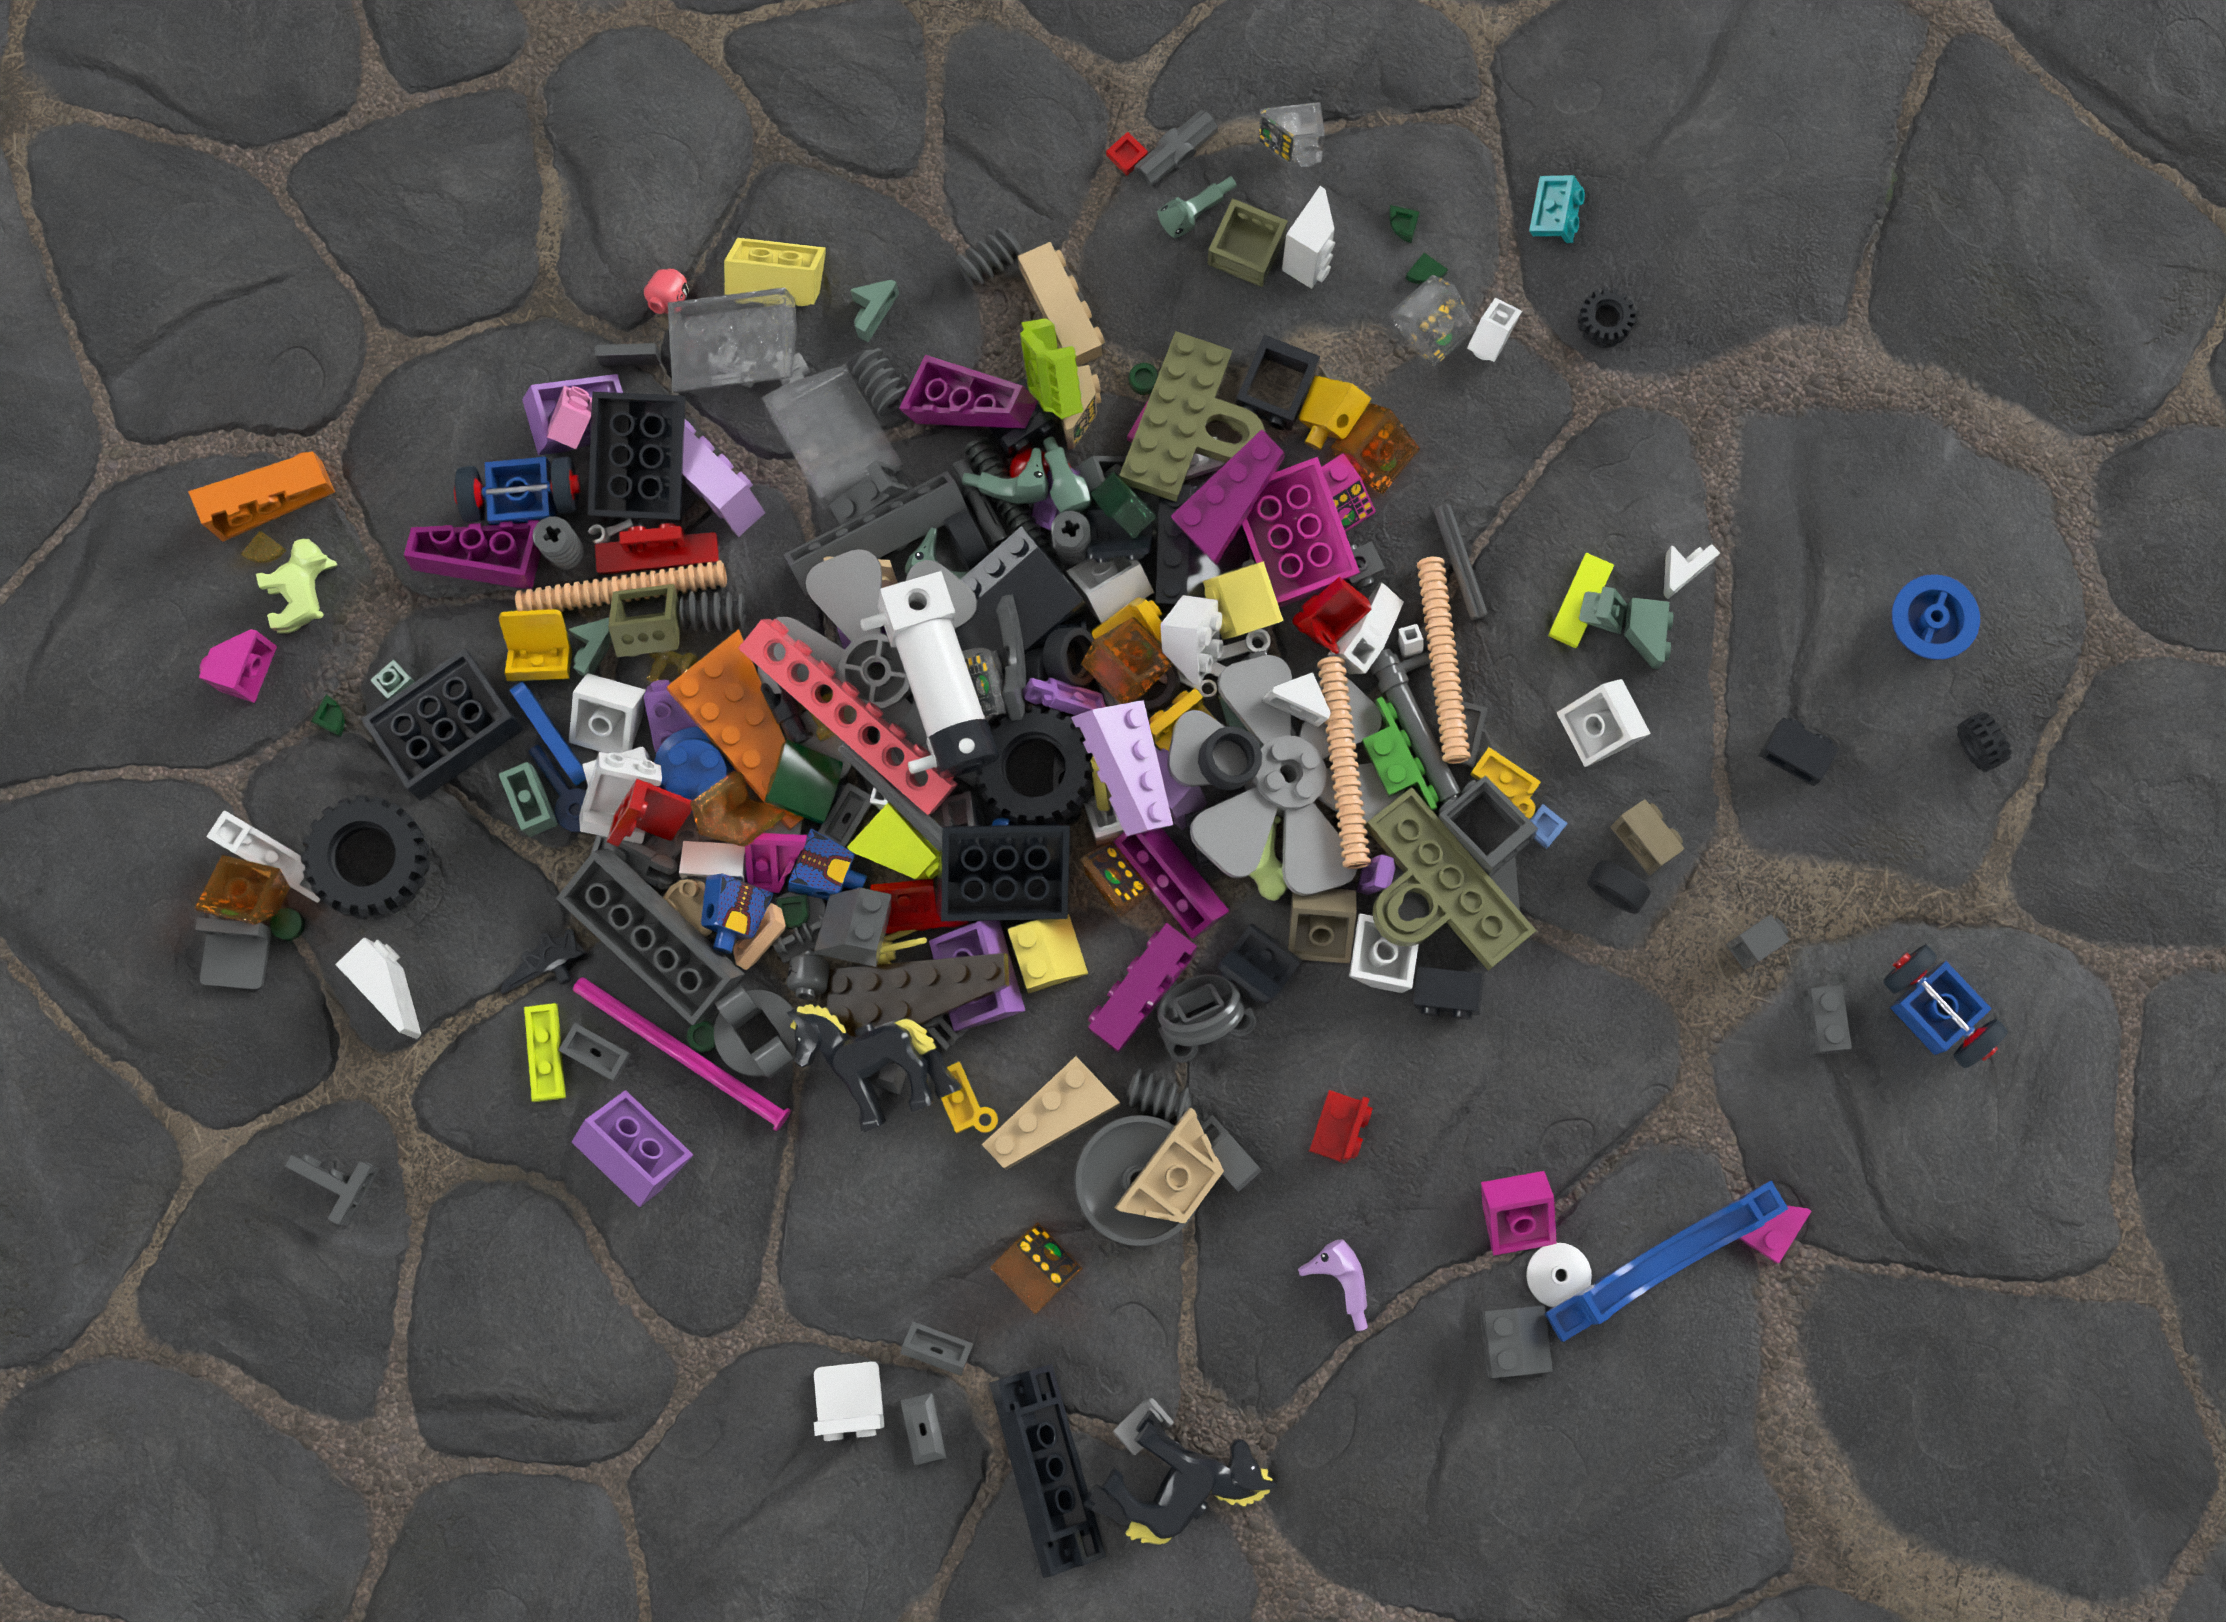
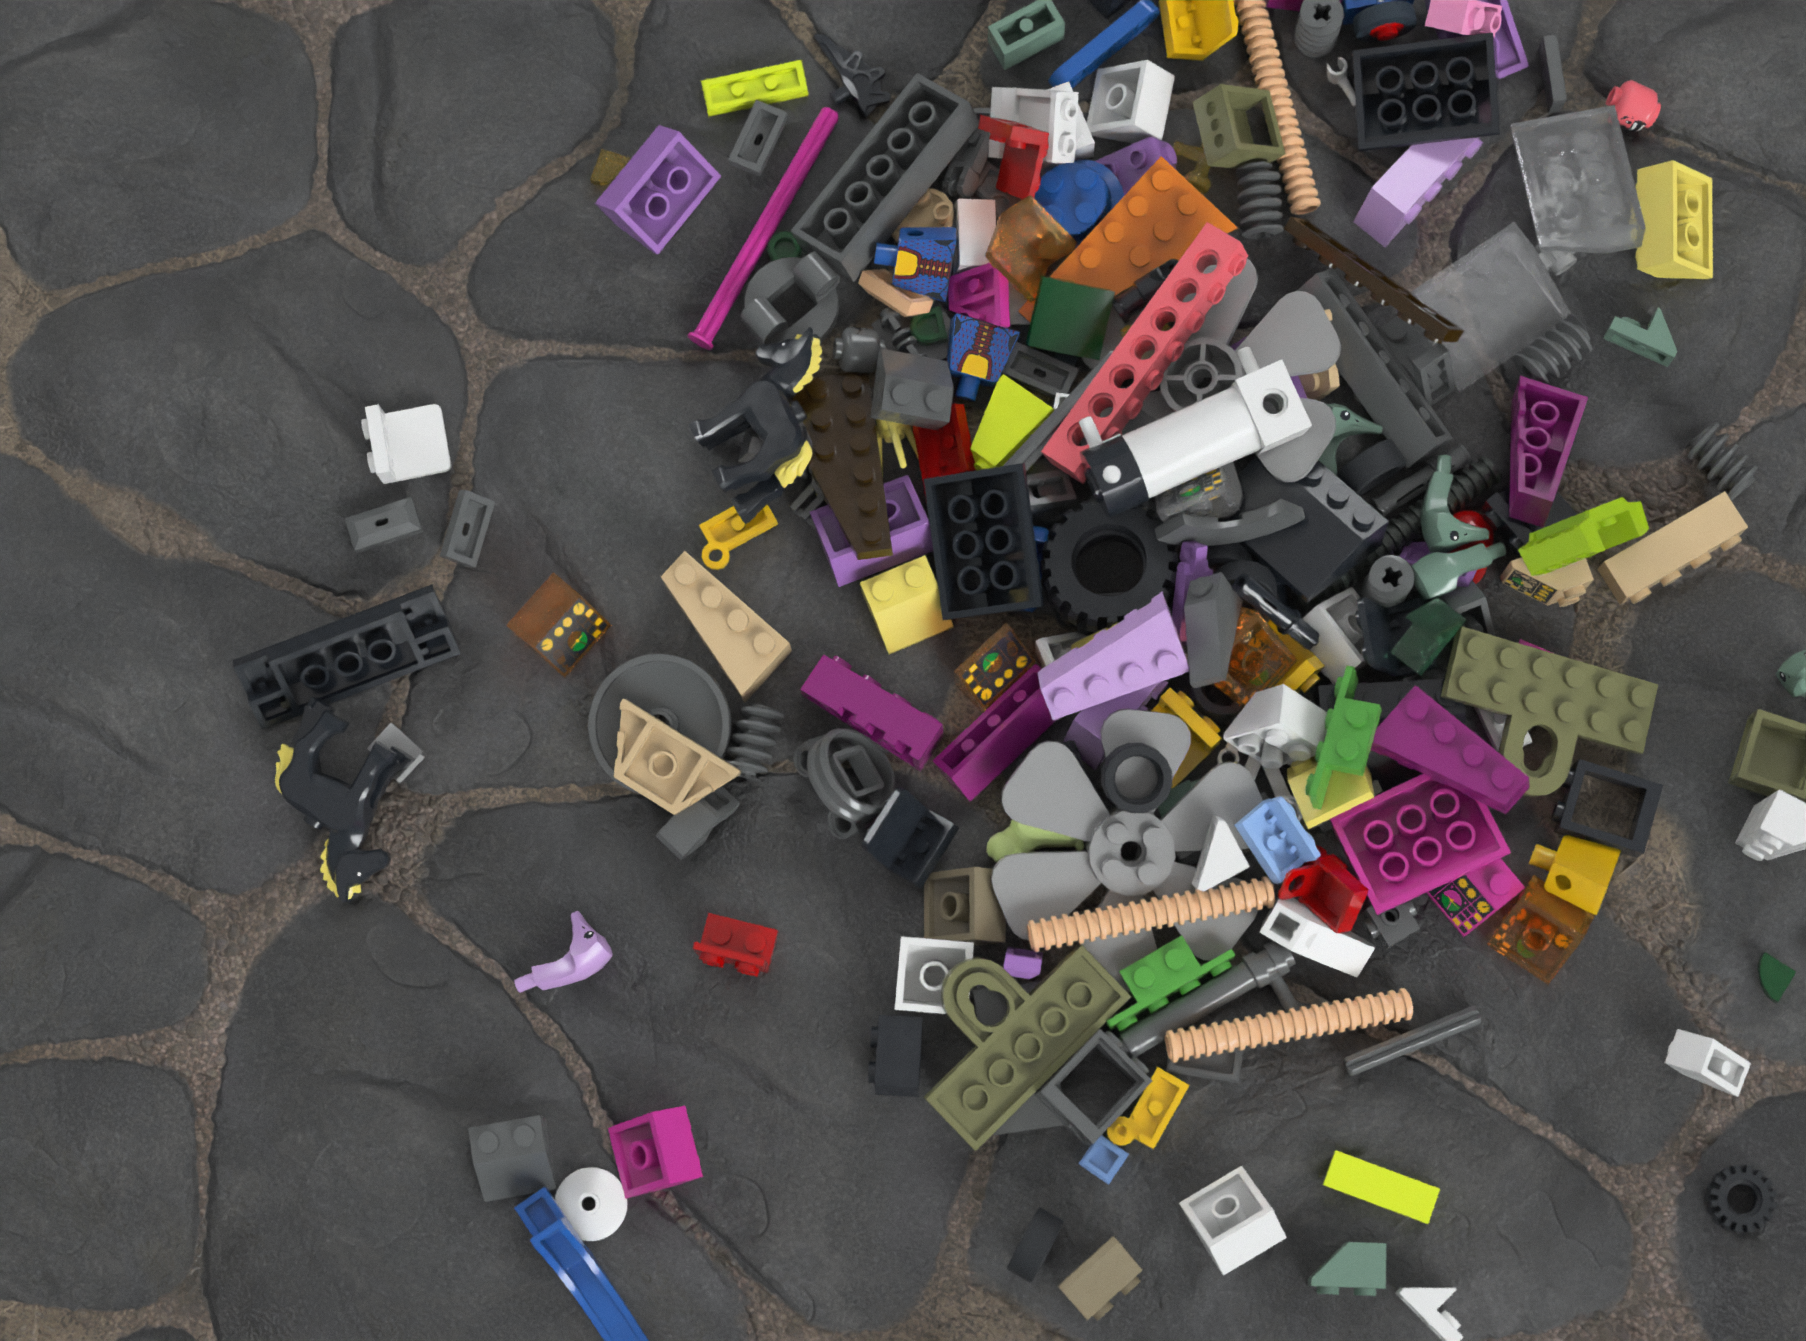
camera: 90 degrees right, 0 degrees up
(570, 800) = (1034, 77): dark blue piece -> none
(598, 642) = (1194, 77): sand green slope -> none
(604, 1192) = (608, 167): none -> clear yellow tile
(655, 549) = (1325, 133): red bracket -> none
(793, 527) = (1383, 288): none -> dark brown plate
(1099, 620) = (1286, 620): none -> black axle
(1107, 680) = (1211, 626): none -> dark grey slope
(1143, 378) = (1597, 652): dark green tile -> none
(1210, 575) = (1347, 739): none -> bright green bracket
(1288, 648) = (1277, 838): none -> light blue bracket
(1410, 641) = (1300, 989): white piece -> none
(1433, 319) = (1710, 988): clear slope -> none
(1604, 610) = (1368, 1213): sand green slope -> none

